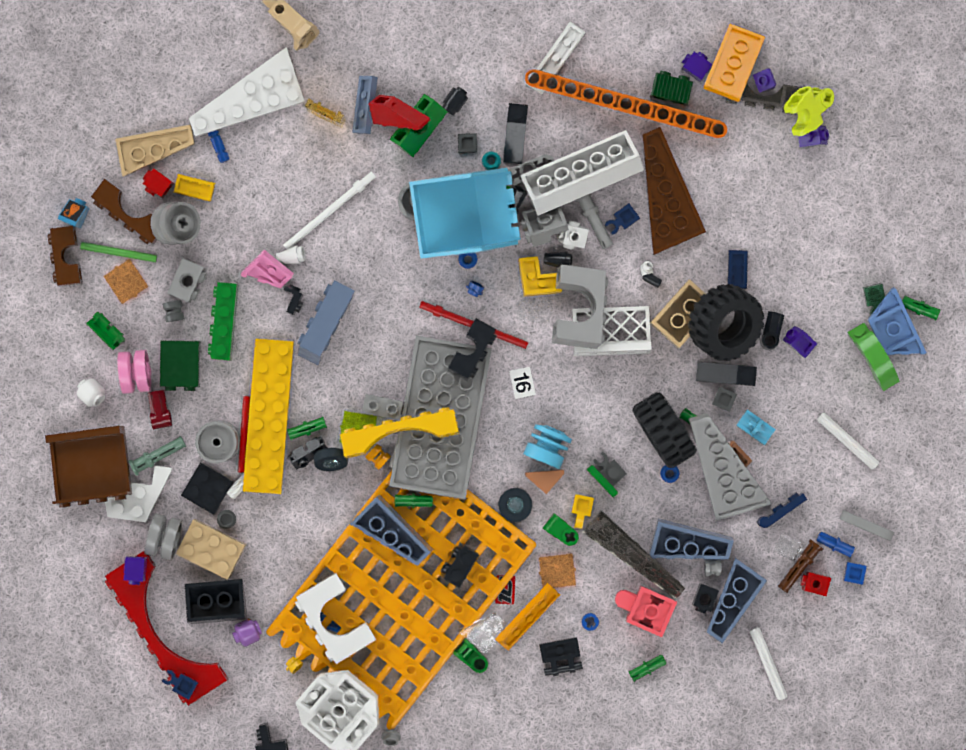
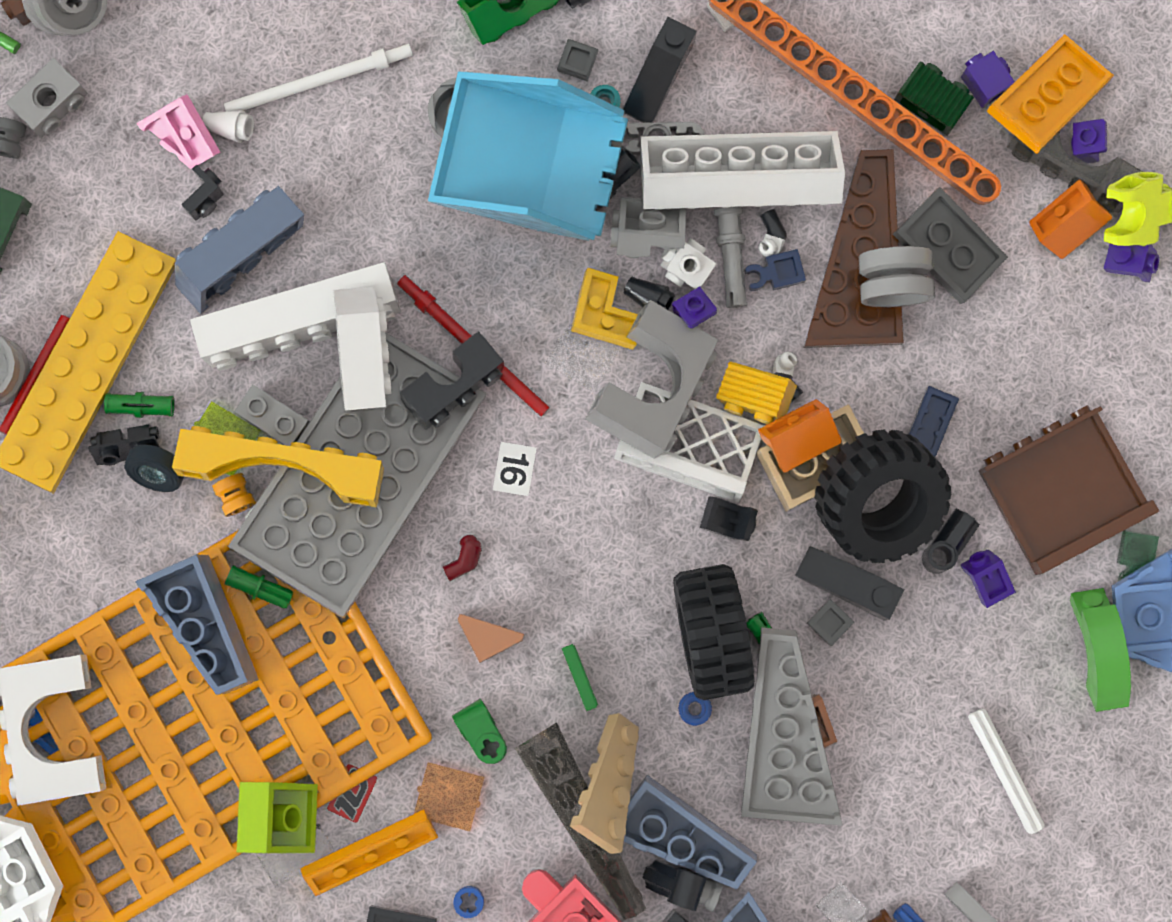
camera: 20 degrees right, 5 degrees down
(224, 321) = (78, 184): green brick -> none
(373, 347) = (284, 318): none -> white brick
(419, 353) = (362, 348): none -> white brick
(459, 565) = (289, 722): black brick -> none
(468, 265) = (502, 229): blue plate -> none
(470, 656) = (249, 882): green piece -> none
(473, 617) = (276, 817): none -> lime slope
(475, 288) = (498, 289): blue plate -> none
(510, 513) = (410, 672): black bush -> none
(517, 441) = (467, 560): none -> dark red arm
(547, 446) = (513, 584): medium azure wheel -> none
(582, 507) = (530, 708): yellow plate -> none
(586, 259) = (694, 308): none -> dark purple bracket
(611, 471) = (602, 668): dark grey plate -> none
(613, 201) = (775, 234): none -> arm
(637, 291) = (755, 392): none -> yellow brick
(642, 535) = (608, 794): none -> tan wing
(649, 365) = (729, 519): none -> black bracket
(670, 306) = (801, 435): none -> orange panel
(688, 199) = (896, 276): none -> light grey wheel
(695, 569) = (678, 885): none -> black piece
(711, 168) = (960, 248): none -> dark grey plate
(755, 427) = (864, 688): medium azure hips -> none
(770, 129) = (1069, 220): none -> orange panel
(781, 510) = (854, 842): dark blue plate -> none
(824, 277) = (1065, 490): none -> reddish brown panel

